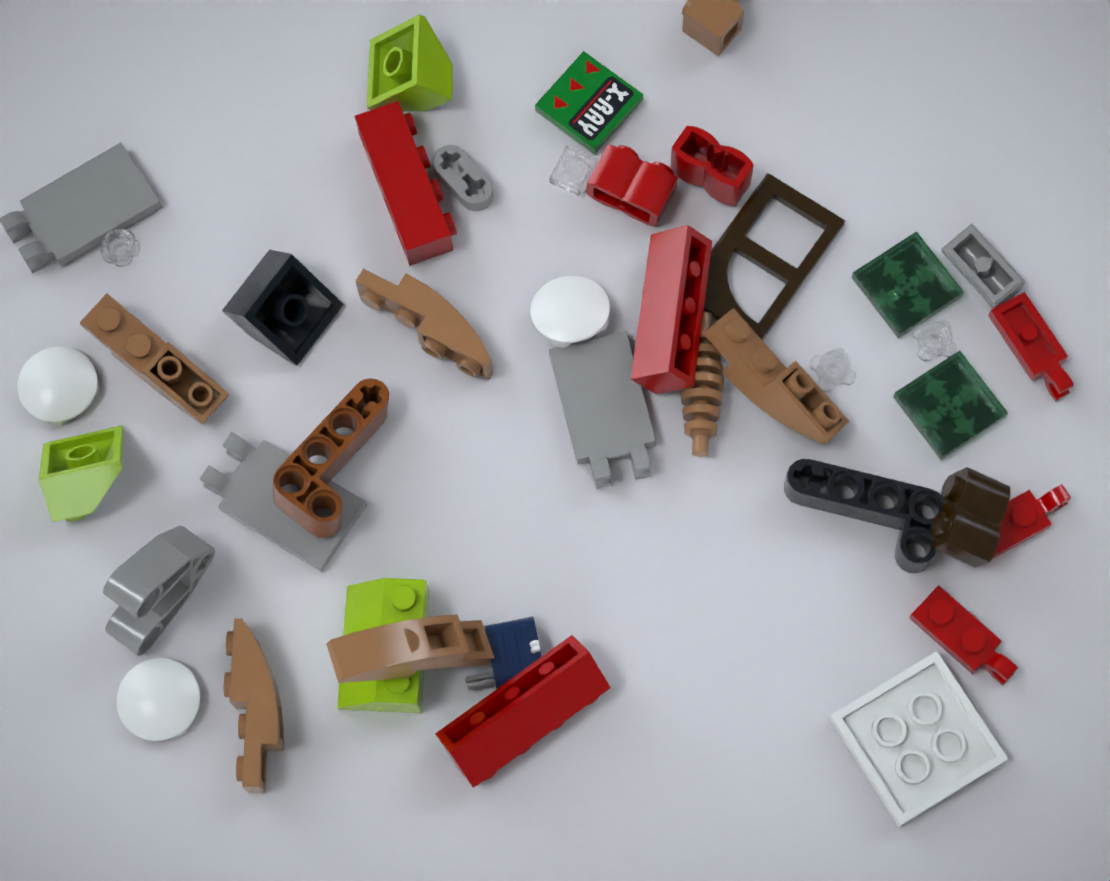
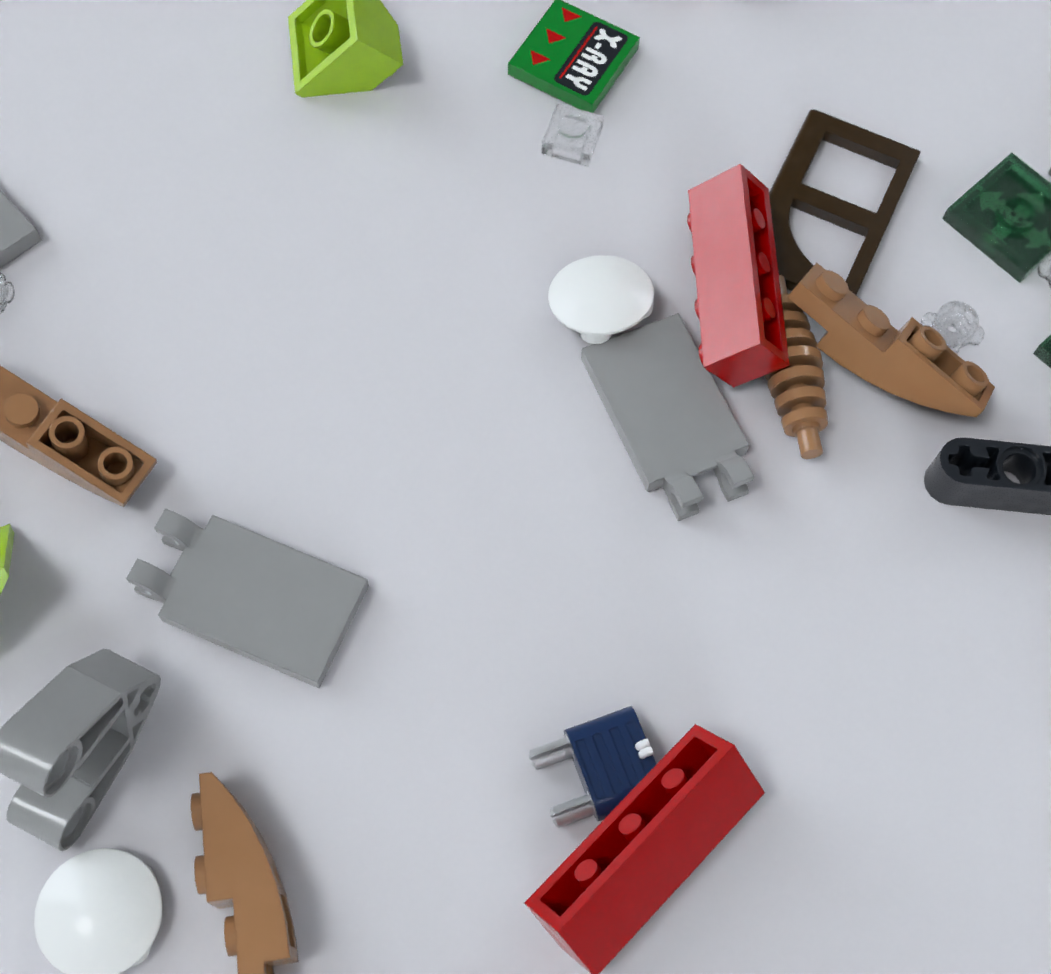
camera: 15 degrees left, 5 degrees down
(283, 306) = (217, 337): black slope -> none
(337, 450) = (319, 514): dark orange beam -> none
(375, 605) = (424, 782): lime slope -> none
(405, 183) = (359, 170): red brick -> none
(409, 646) = (466, 781): medium nougat slope -> none
(441, 327) = (435, 335): medium nougat slope -> none
(469, 172) = (428, 162): light grey beam -> none
(632, 184) = (648, 139): red brick -> none
(716, 167) = (746, 101): red brick -> none

